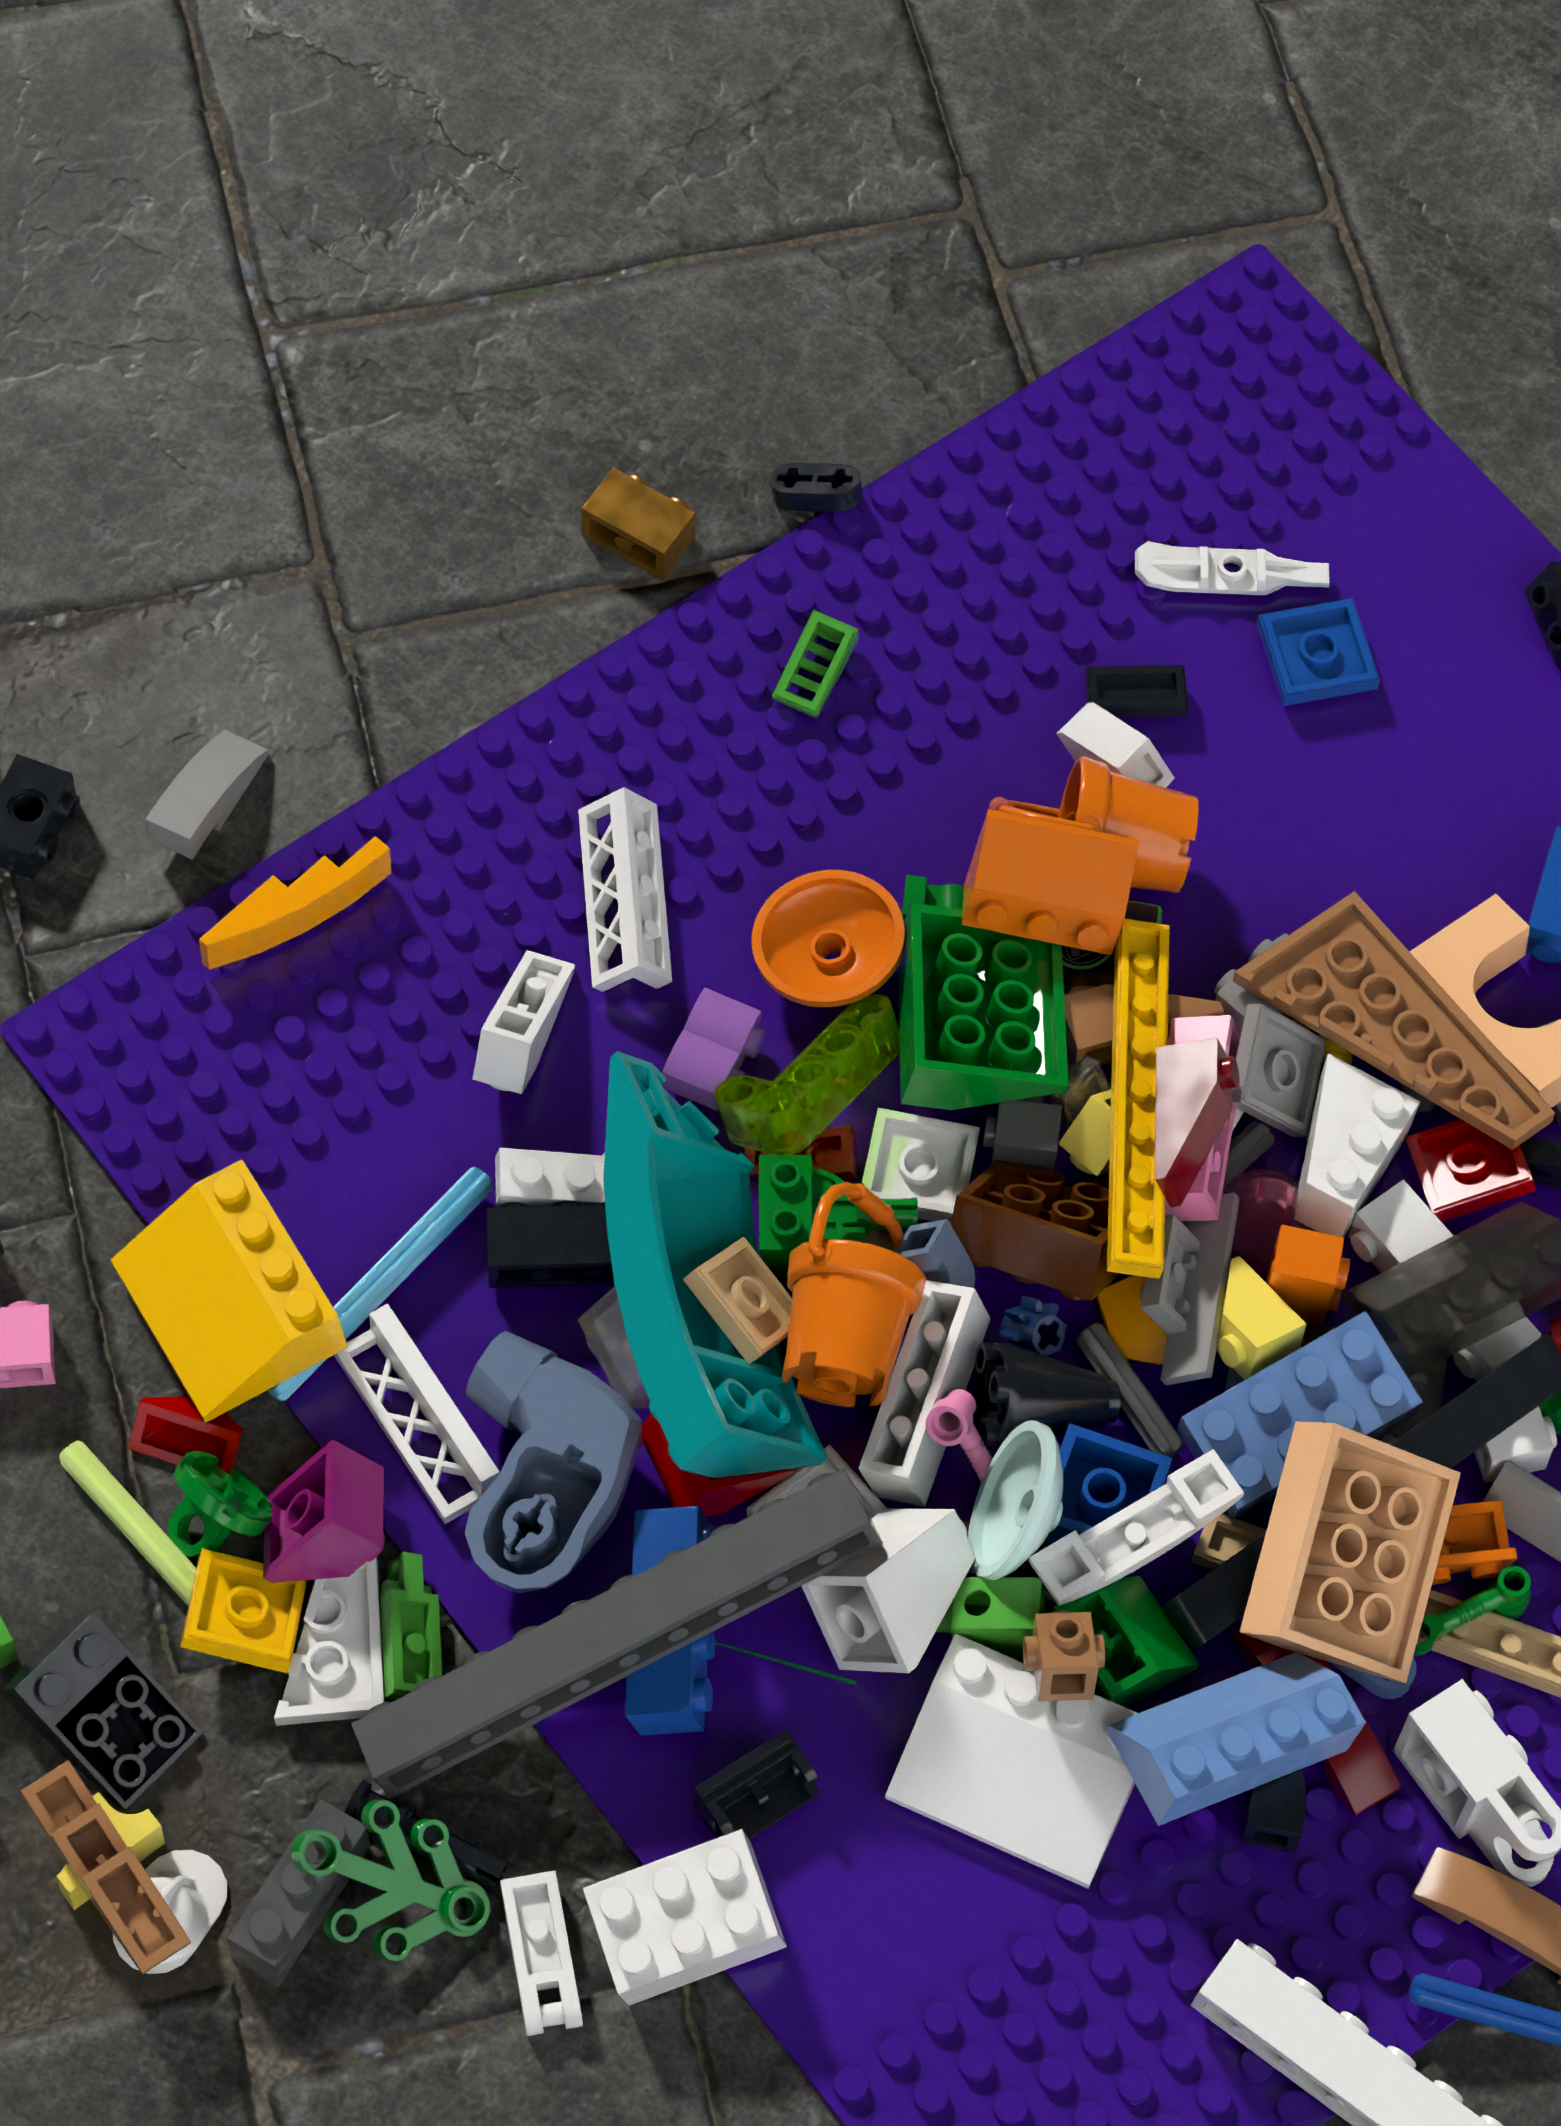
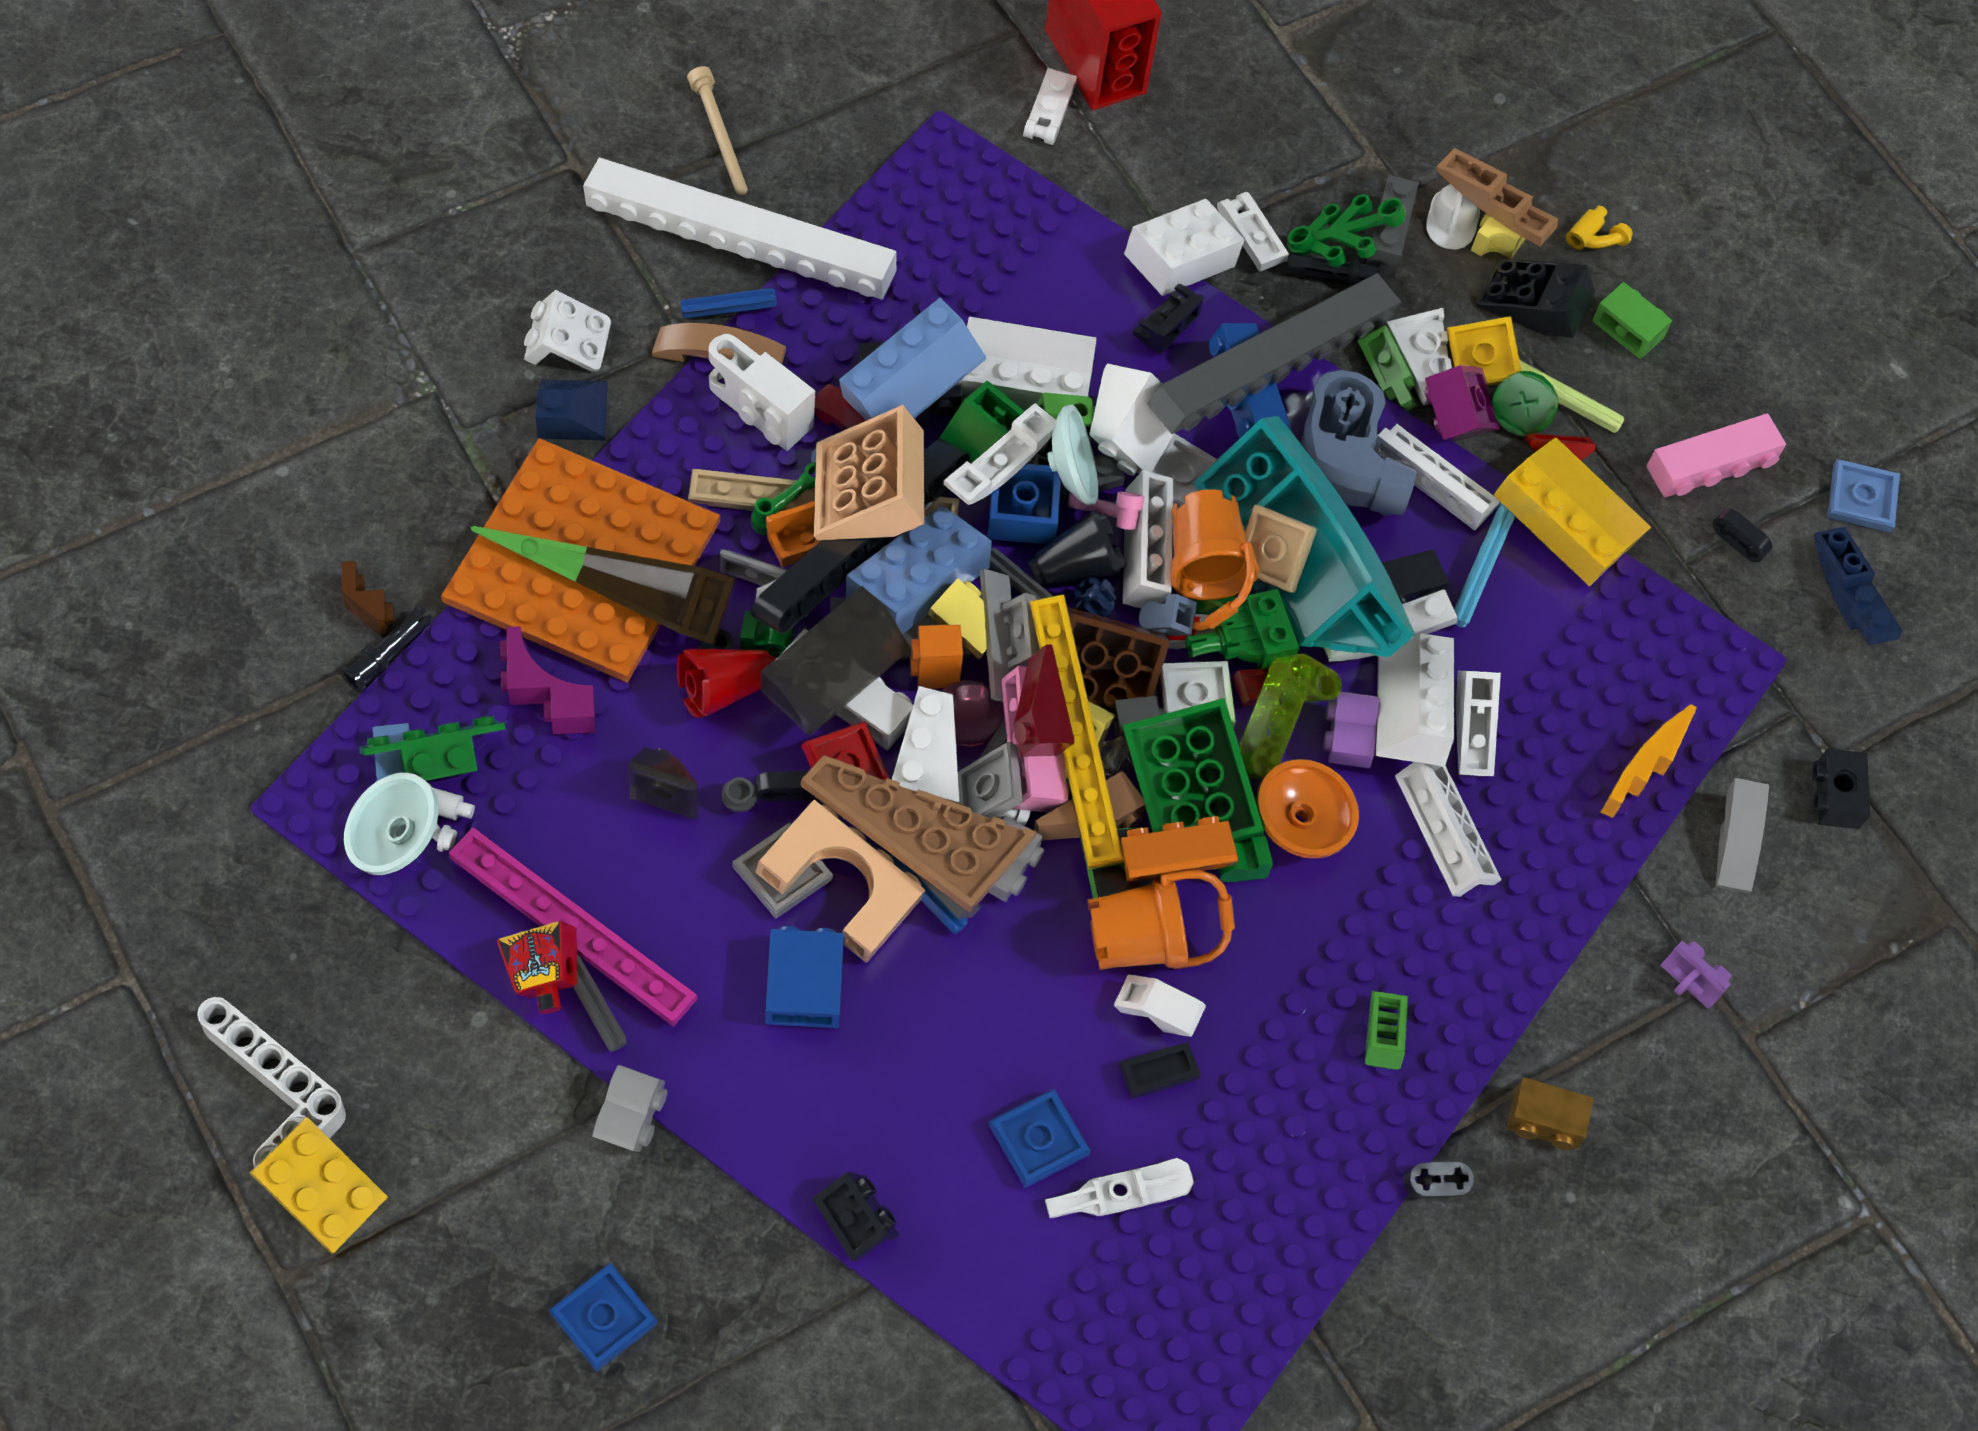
camera: 160 degrees right, 0 degrees up
(349, 621) = (1695, 974): none -> medium lavender hips
(625, 1003) = (1417, 701): none -> white slope
(1064, 1655) = (1023, 377): medium nougat brick -> none

